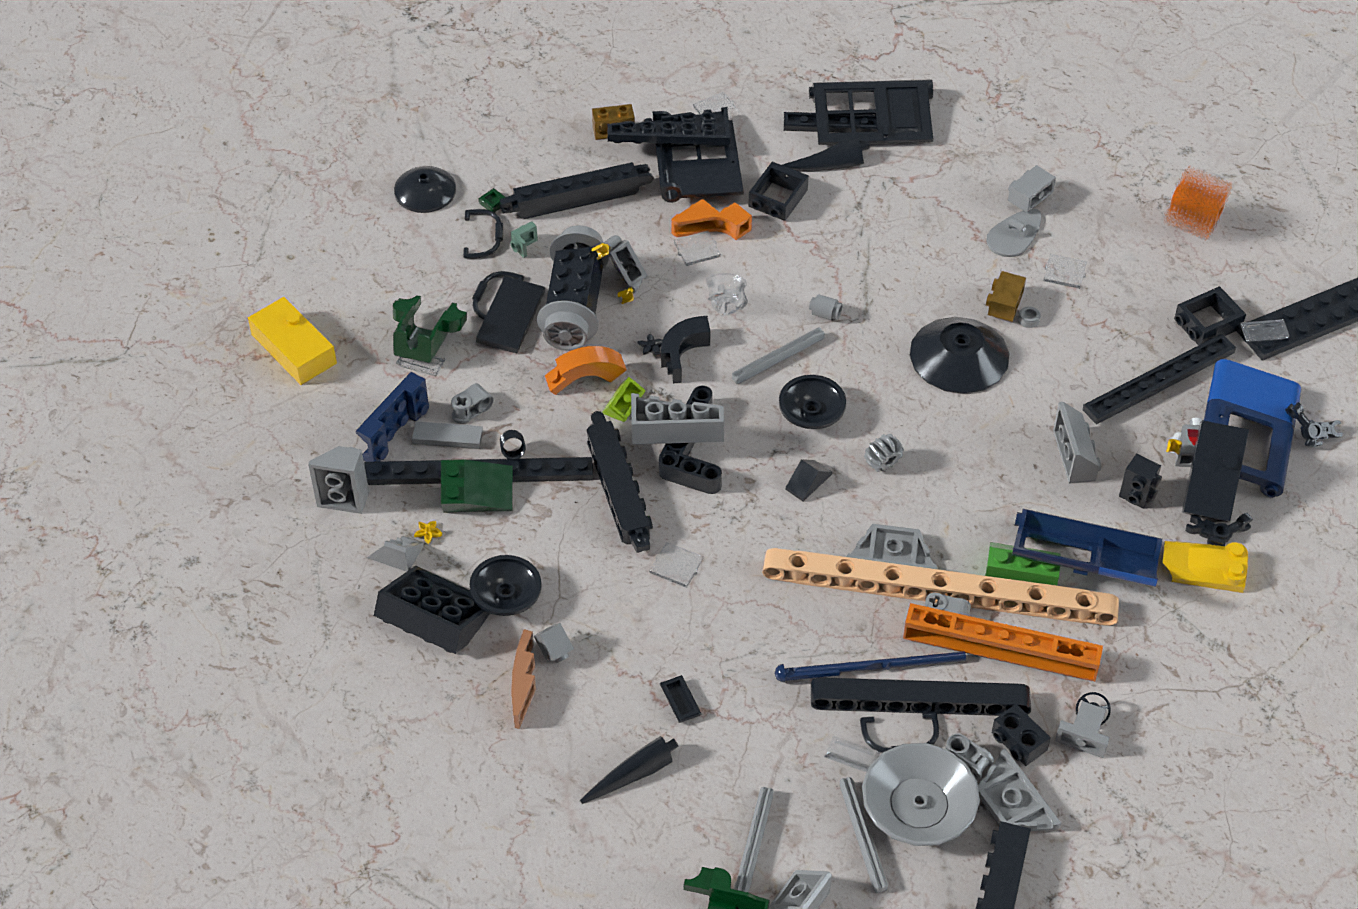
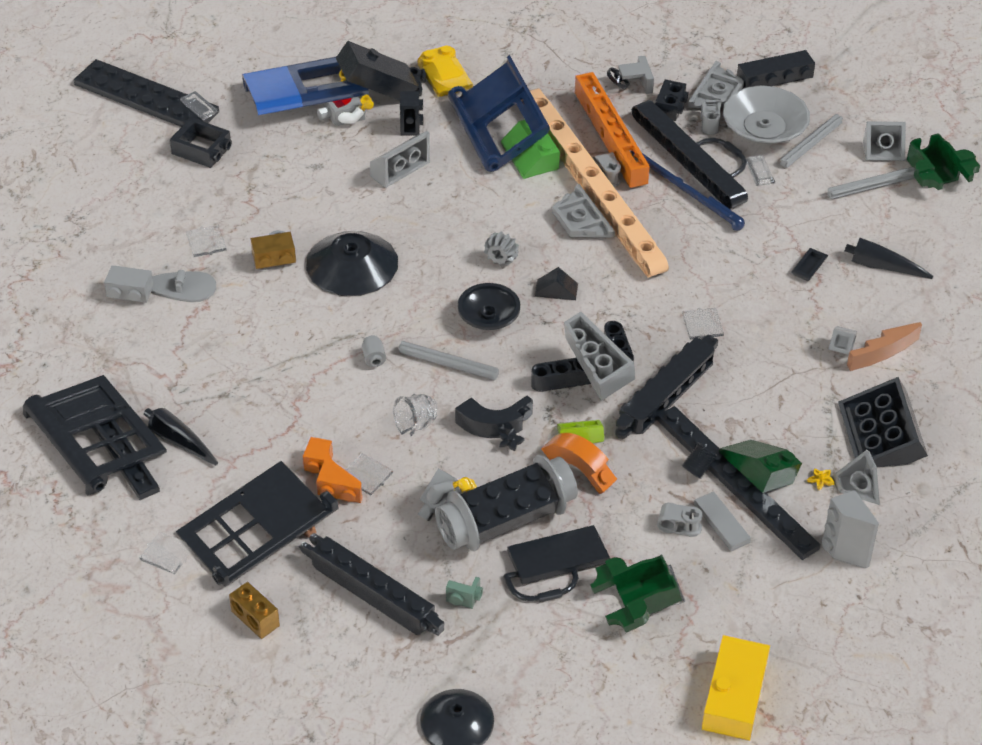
camera: 125 degrees left, 5 degrees down
(405, 402) = (752, 551): dark blue piece -> none
(491, 200) = (429, 653): dark green tile -> none
(498, 233) = (469, 622): black piece -> none
(505, 576) = (828, 389): black dish -> none
(678, 129) = (228, 541): black wing -> none
(777, 174) = (256, 430): black window -> none
(1158, 379) = (292, 148): black plate -> none
(1200, 204) = (86, 172): orange piece -> none
(1312, 430) = (278, 58): black piece -> none

